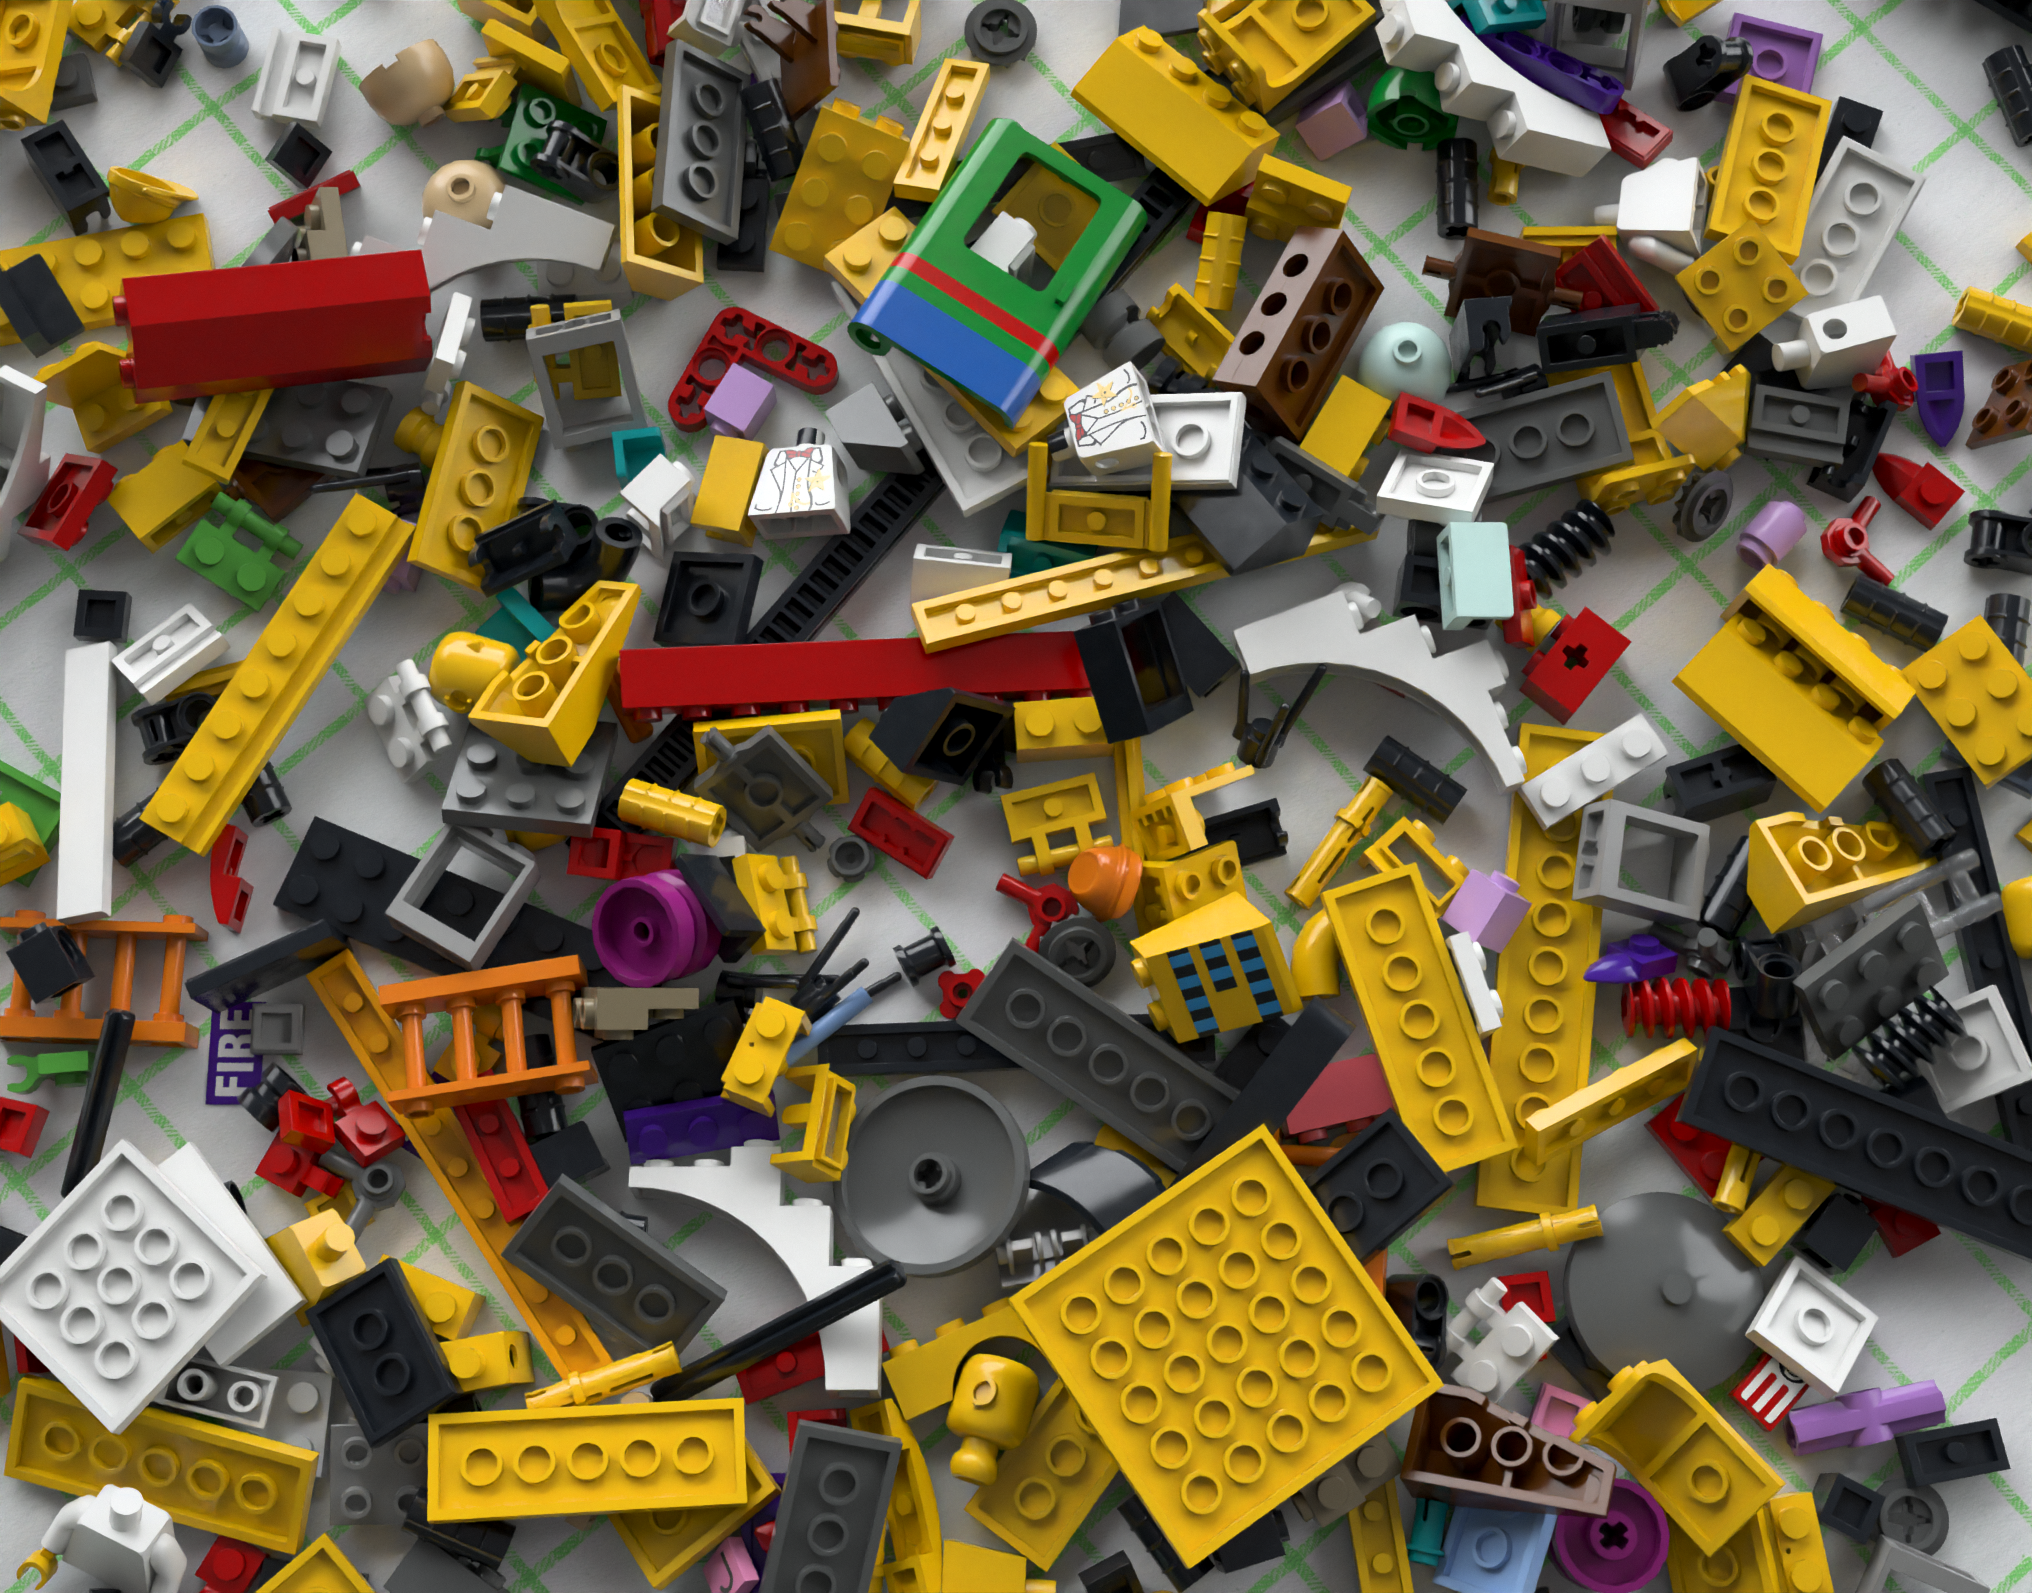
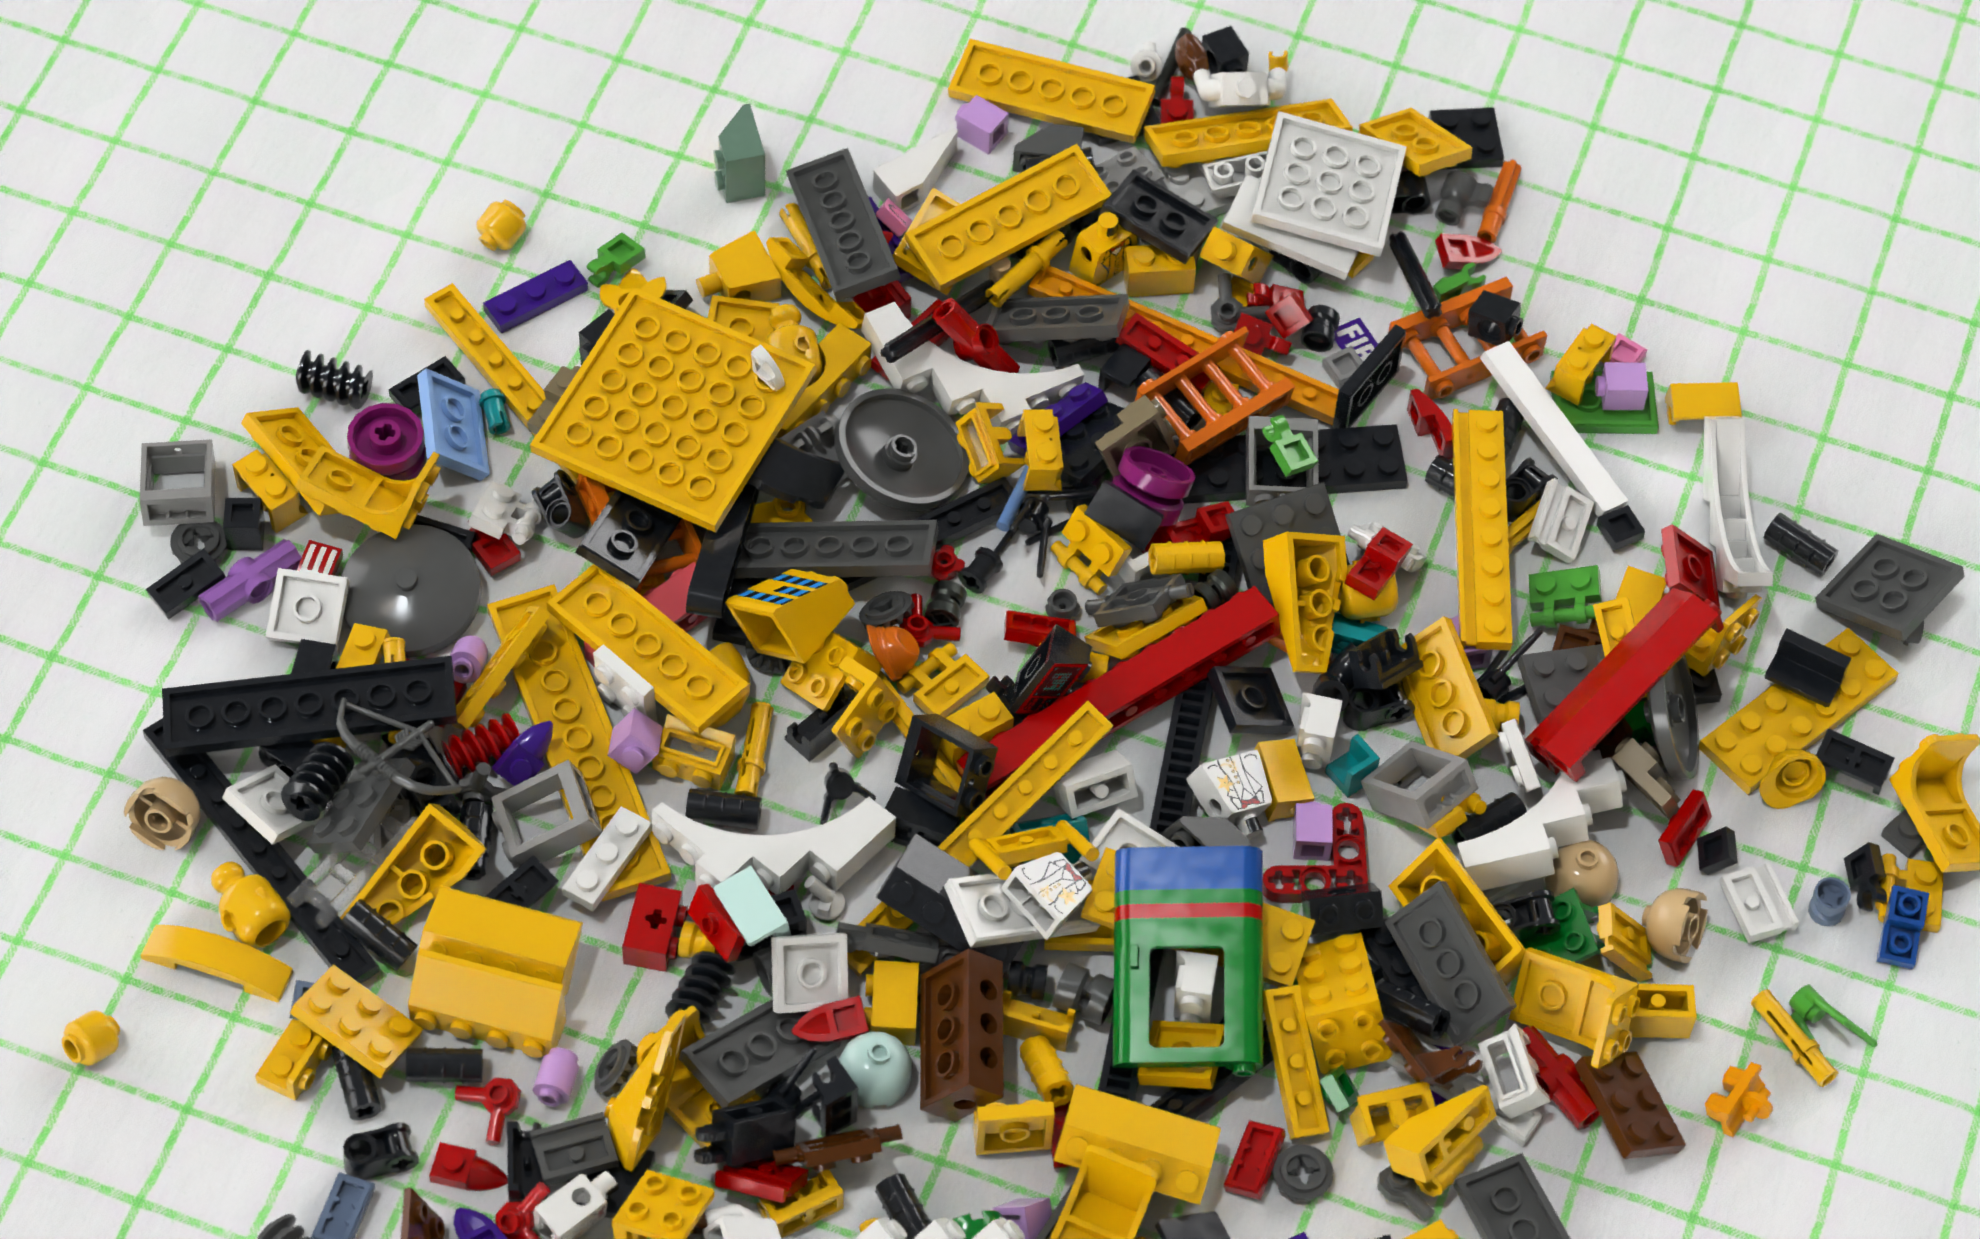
camera: 150 degrees right, 20 degrees down
(447, 671) = (1378, 563): none -> red slope
(451, 872) = (1289, 450): none -> bright green plate
(546, 68) = (1617, 960): yellow tile -> none
(668, 750) = (1216, 590): none -> pearl dark grey wheel
(747, 290) = (1343, 908): none -> black brick
(749, 1280) = (973, 340): none -> red piece
(907, 89) = (1338, 1088): none -> green plate
(996, 926) = (945, 604): none -> pearl dark grey wheel
(1045, 66) = (1254, 1160): none -> red plate
(1084, 1316) = (766, 368): none -> white tile
(1495, 1459) = (479, 438): reddish brown wedge -> none
(1524, 1237) = (503, 583): yellow pin -> none
(1556, 1409) = (445, 505): bright pink tile -> none
(1638, 1145) = (468, 658): none -> lavender brick
(1794, 1016) = (403, 741): none -> dark grey piece

